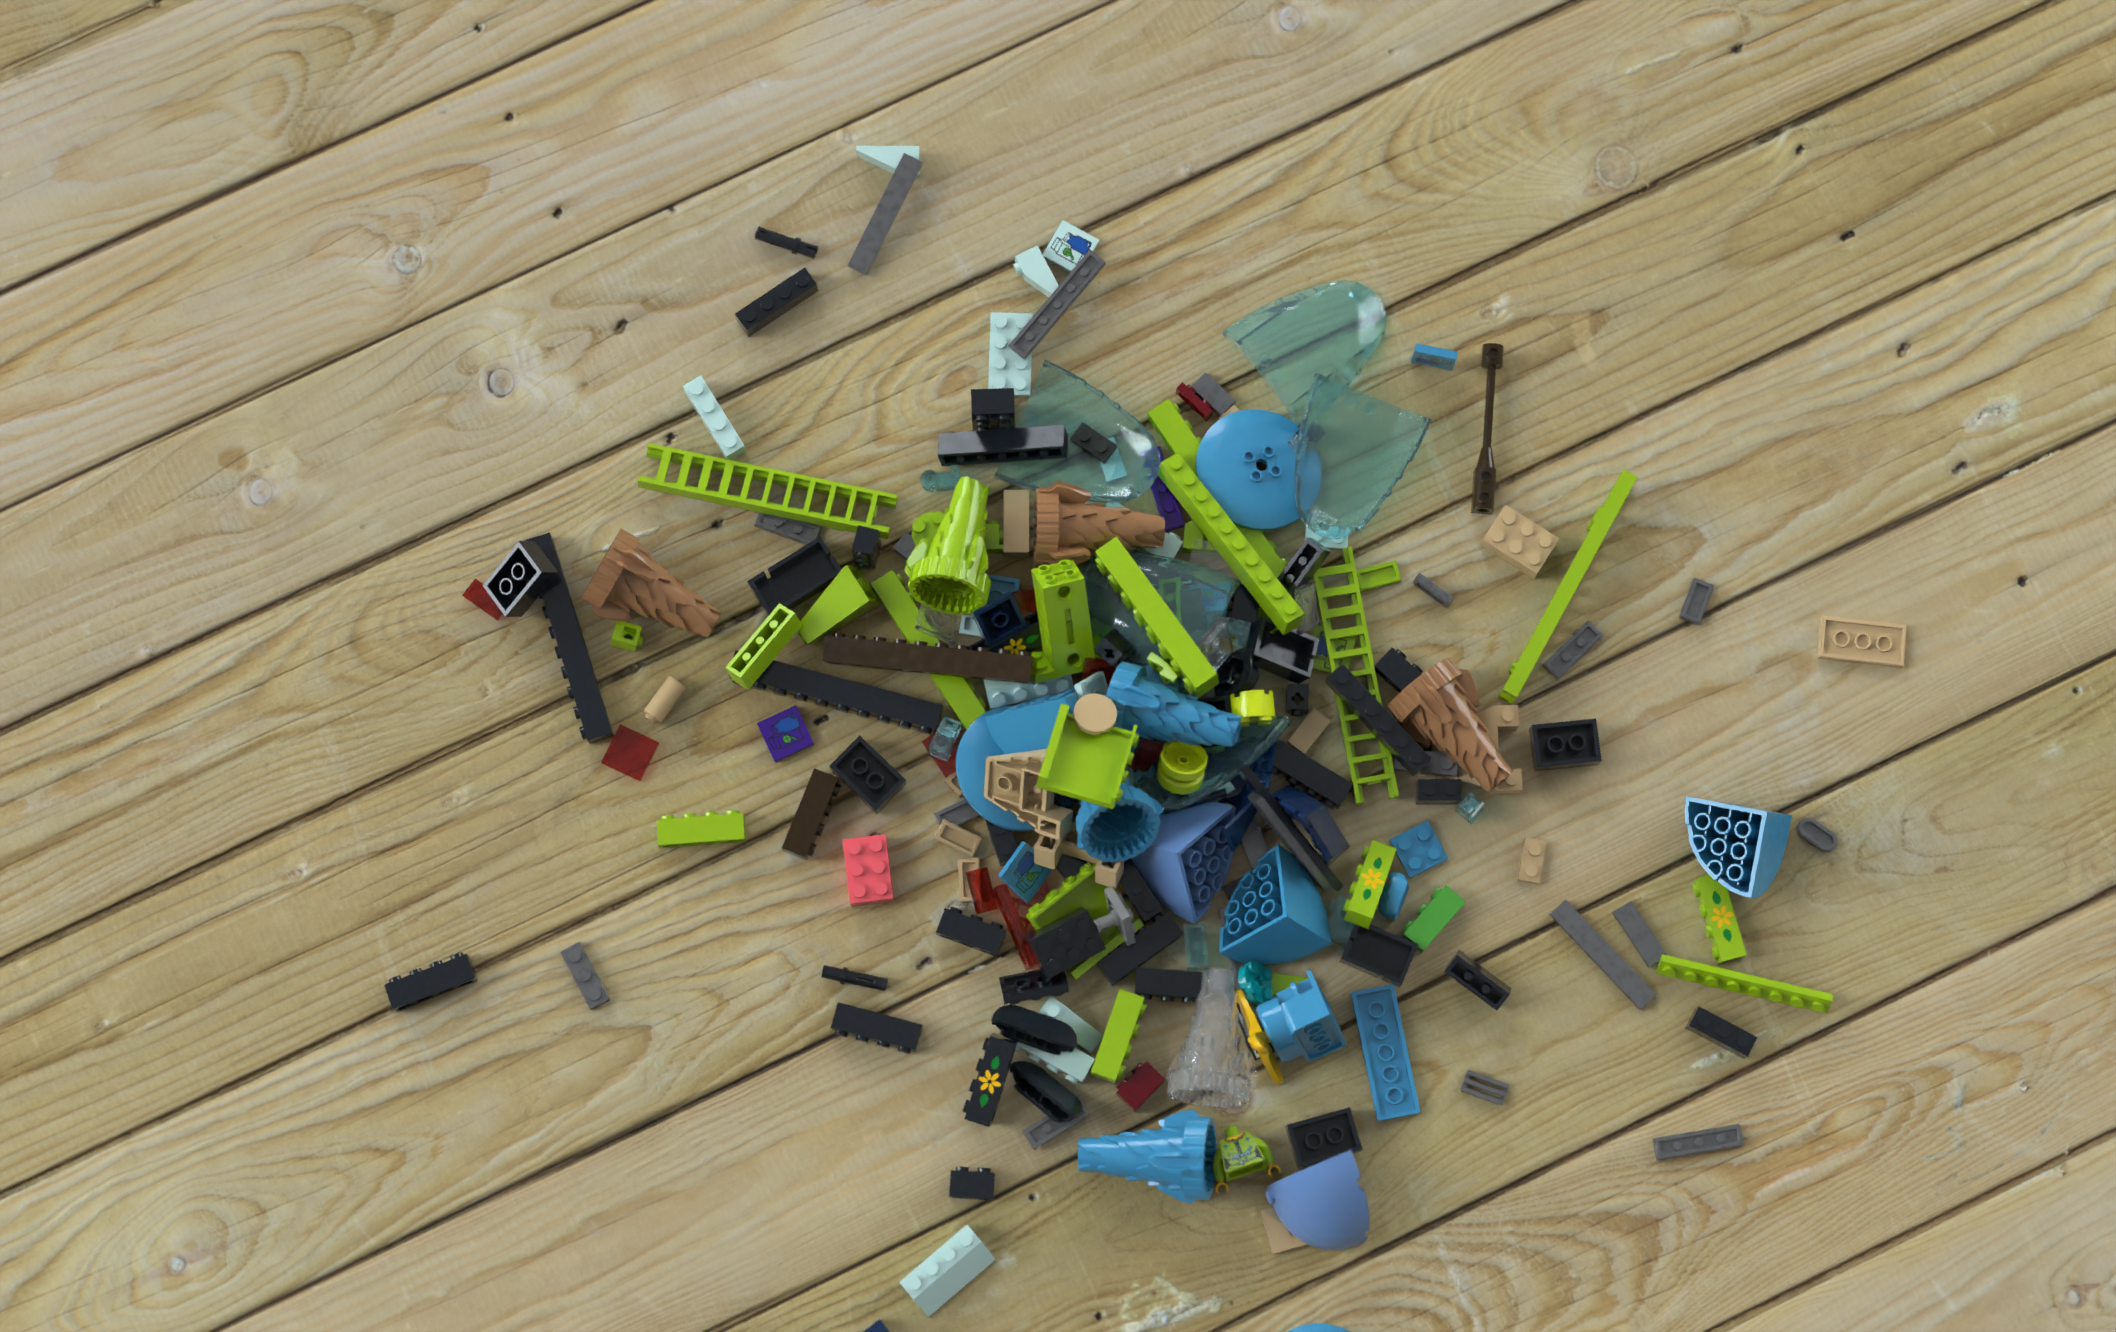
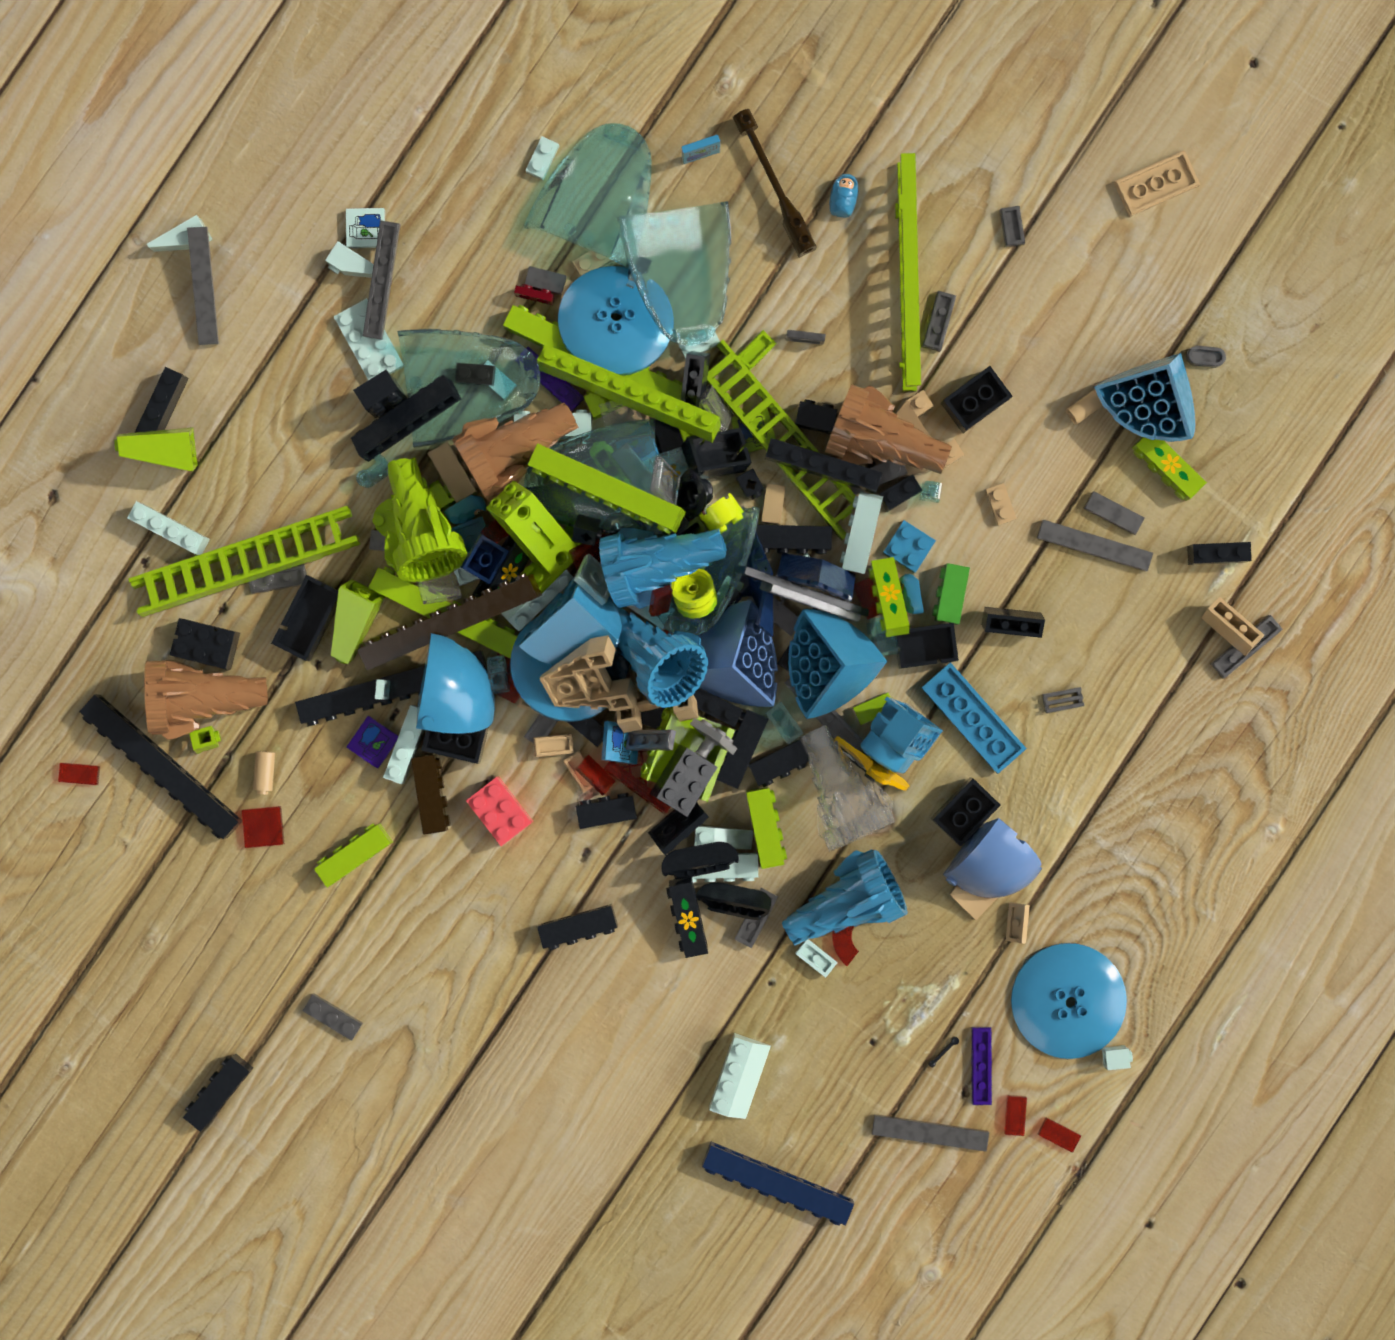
camera: 30 degrees left, 10 degrees up
(520, 578) = (93, 745): black brick -> none
(682, 546) = (205, 644): none -> black piece
(758, 340) = (162, 447): none -> lime slope
(763, 646) = (314, 687): lime brick -> none
(786, 242) = (147, 352): black pin -> none
(817, 754) = (404, 749): none -> light aqua brick
(828, 685) = (382, 689): none -> light aqua tile
(847, 976) = (530, 901): black pin -> none
(866, 547) = (347, 562): black brick -> none
(896, 725) = (454, 690): none -> dark azure brick
(971, 1184) = (720, 1001): black brick -> none
(1008, 564) = (465, 509): none -> dark azure piece
(1056, 883) = (650, 740): none -> flat silver tile
(1086, 764) = (619, 637): lime panel -> none
(1092, 1197) = (816, 957): none -> light aqua plate
(1095, 714) = (604, 597): tan tile -> none
(1127, 1199) = (844, 945): none -> clear red tile
(1140, 1085) = (803, 853): dark red brick -> none
(1162, 667) = (631, 524): lime slope -> none
(1241, 1156) = (910, 862): lime torso -> none
(1256, 982) = (846, 715): teal plate -> none
(1266, 401) = (590, 261): none -> tan plate
(1278, 279) = (542, 158): none -> light aqua plate
(1312, 1280) = (1017, 922): none -> tan plate
(1347, 872) = (865, 596): none -> clear red tile
(1379, 807) = (862, 532): none -> light aqua brick
(1519, 541) = (850, 259): tan brick -> none
(1548, 479) = (843, 196): none -> dark azure piece
(1666, 814) = (1084, 407): none -> tan brick
(1693, 1110) = (1232, 626): none -> tan brick
(1744, 983) = (1215, 505): lime plate -> none

